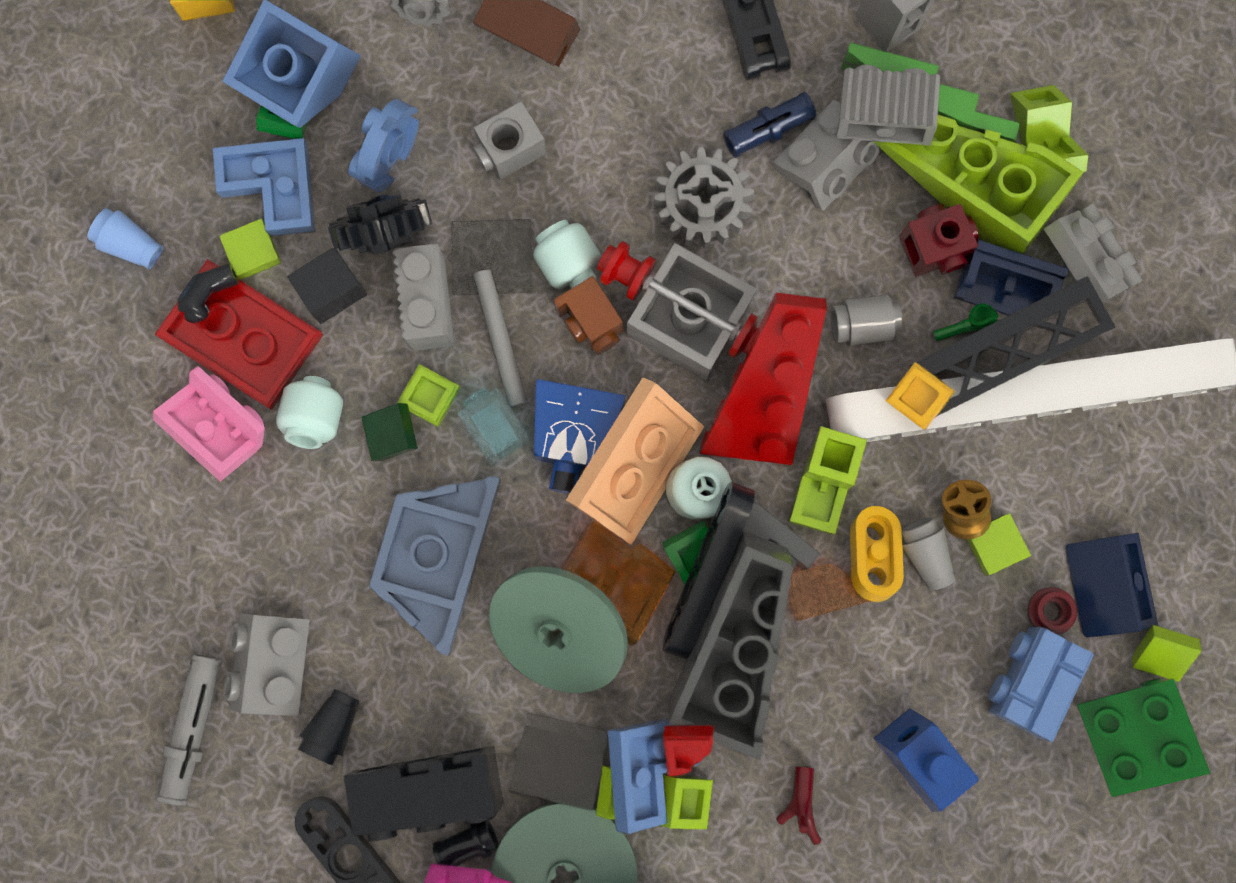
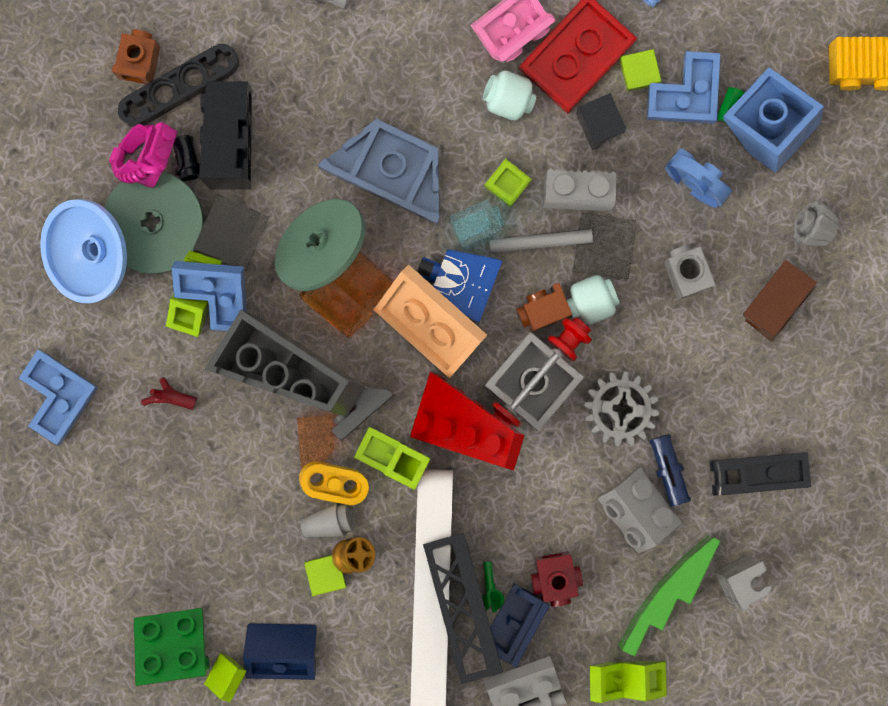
camera: 100 degrees right, 5 degrees up
(200, 288) = (613, 30): black arm -> none
(267, 665) = (335, 40): light grey bracket -> none
(330, 727) = (283, 77): black cone -> none
(379, 224) = (637, 165): black gear -> none
(389, 432) = (485, 150): dark green tile -> none
(683, 490) = (415, 363): light aqua head -> none
(684, 548) = (358, 353): green plate -> none
(686, 747) = (222, 318): red tile -> none
(708, 570) = (342, 358): black beam -> none
(865, 320) = (506, 511): light grey brick -> none
(888, 105) = (662, 555): light grey brick -> none
(920, 396) = (439, 534): yellow tile -> none
(926, 760) = (183, 486): blue torso -> none
(1000, 183) = (594, 626): lime wedge -> none
(1039, 682) = (221, 580): medium blue brick -> none
(1065, 604) = (259, 603): dark red plate -> none

